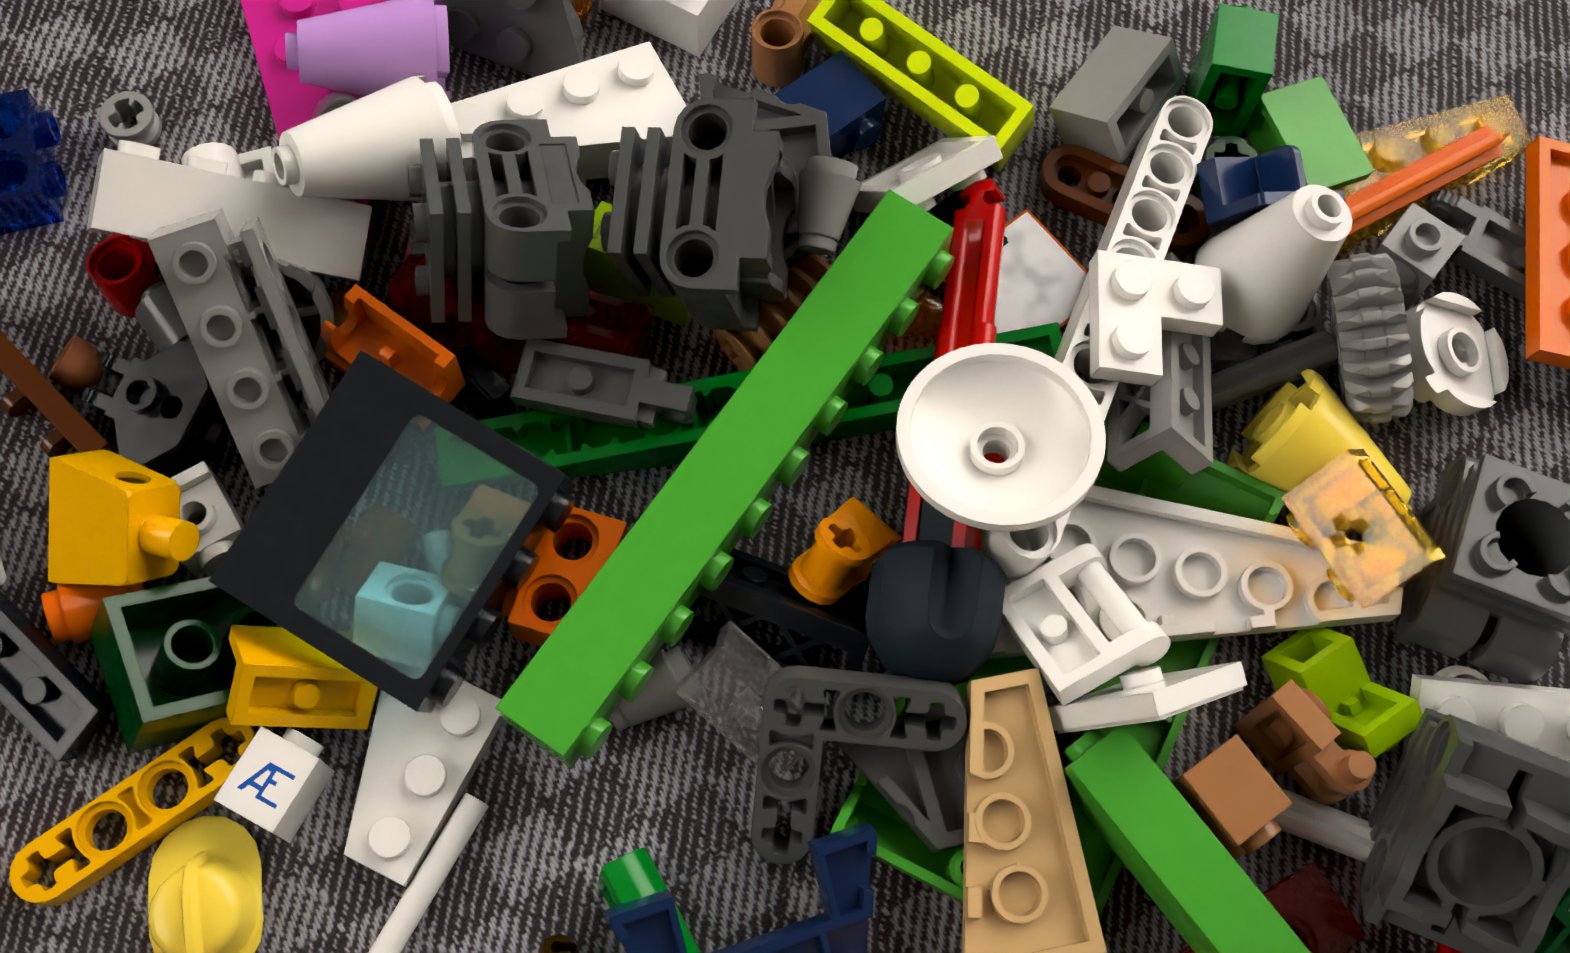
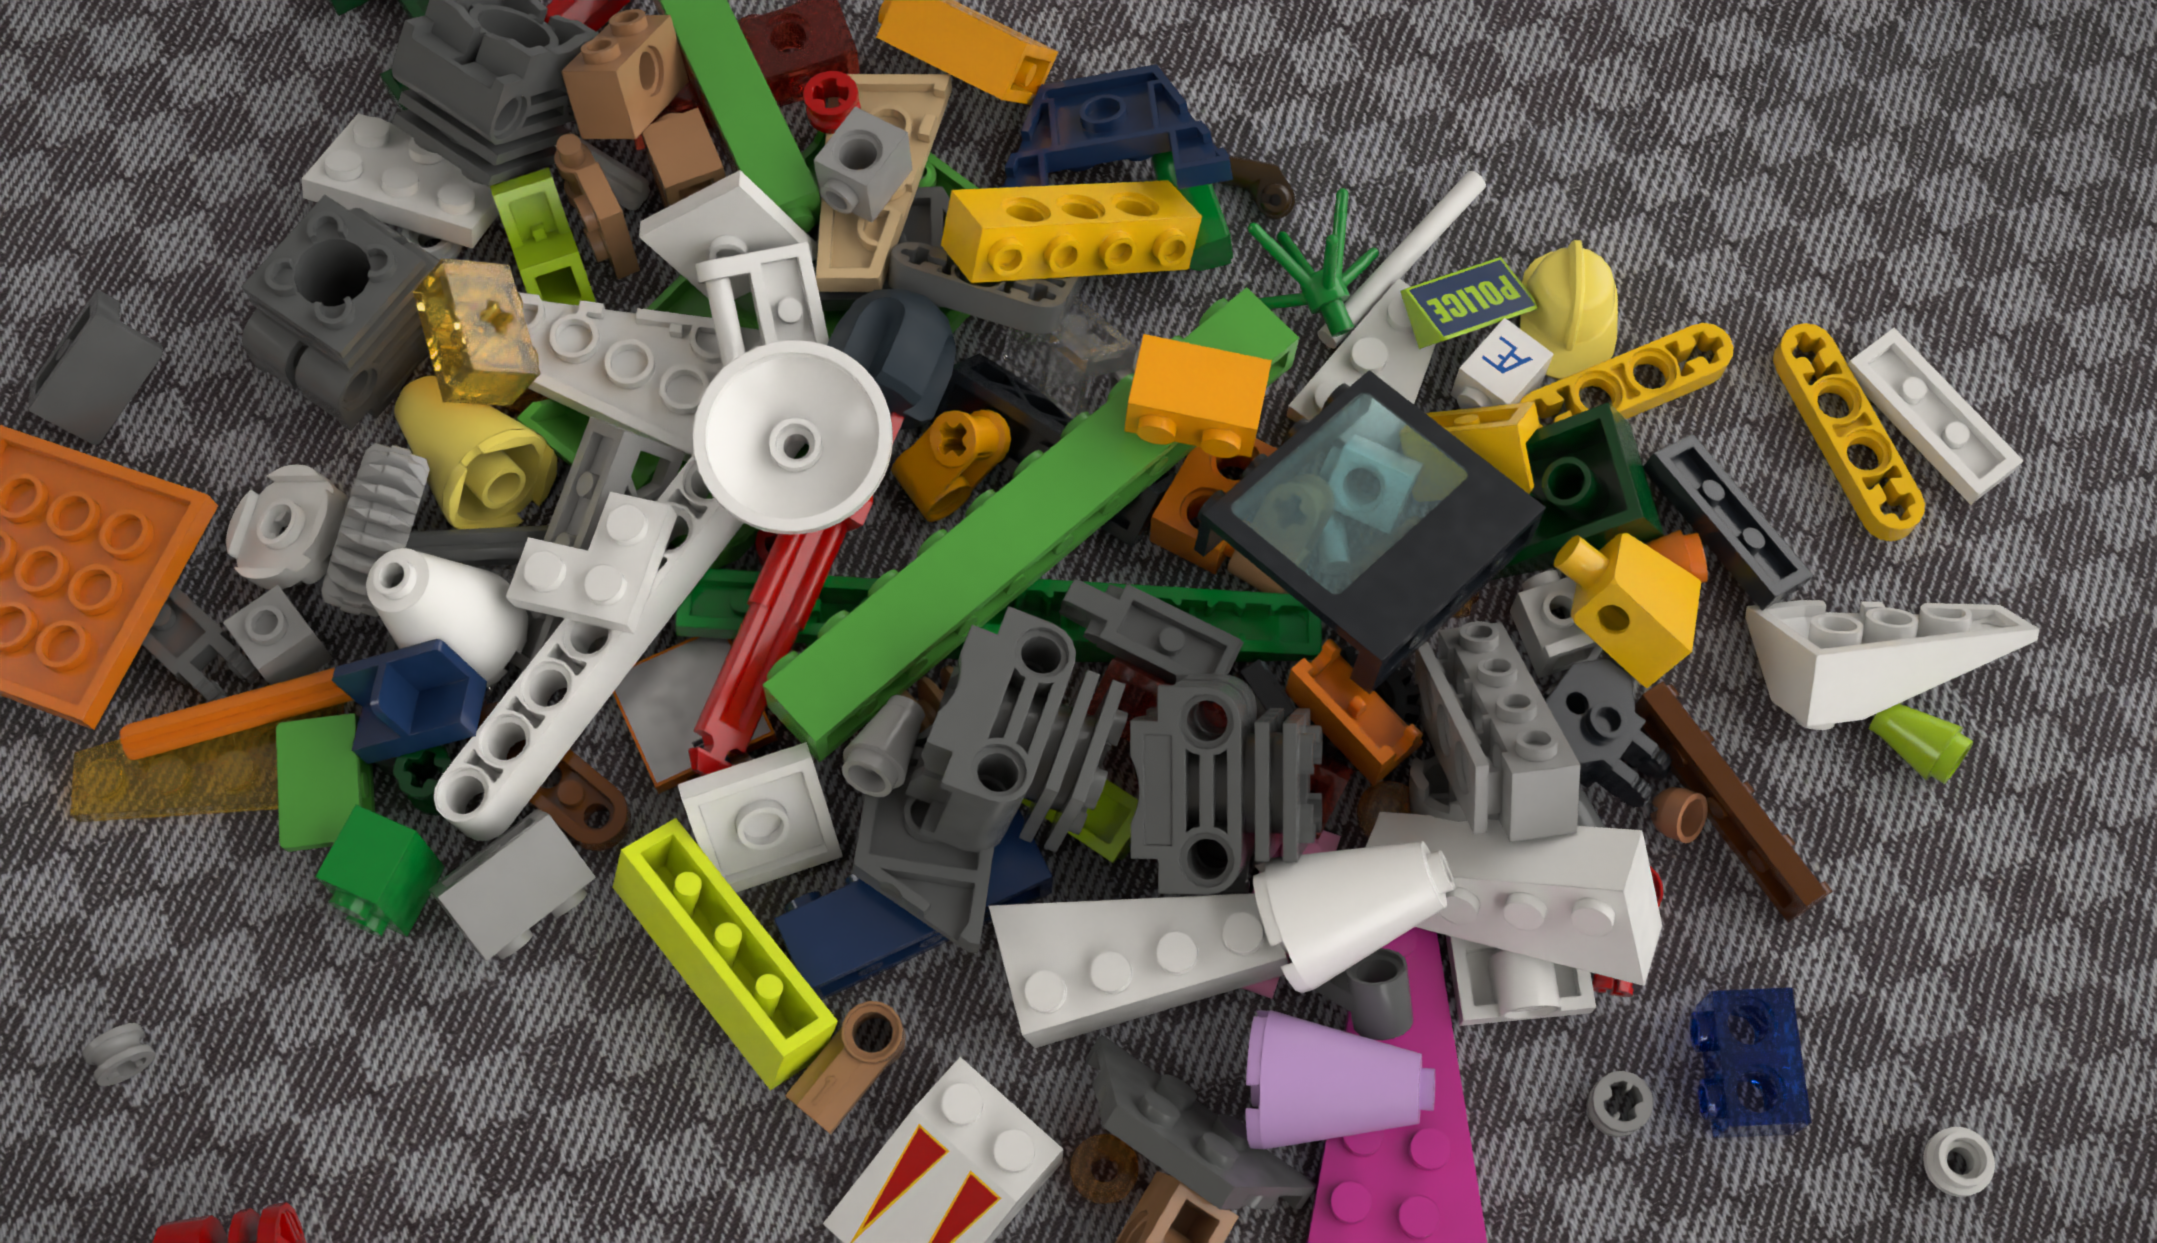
camera: 165 degrees left, 0 degrees up
(317, 855) = (1465, 301): none -> slope
(485, 839) = (1326, 288): none -> green plant
(590, 582) = (1197, 396): none -> light orange brick
(763, 843) = (1069, 230): none -> yellow brick
(1007, 821) = (867, 145): none -> light grey brick
(1097, 875) = (825, 86): none -> red bush
(1335, 861) = (625, 76): none -> medium nougat brick

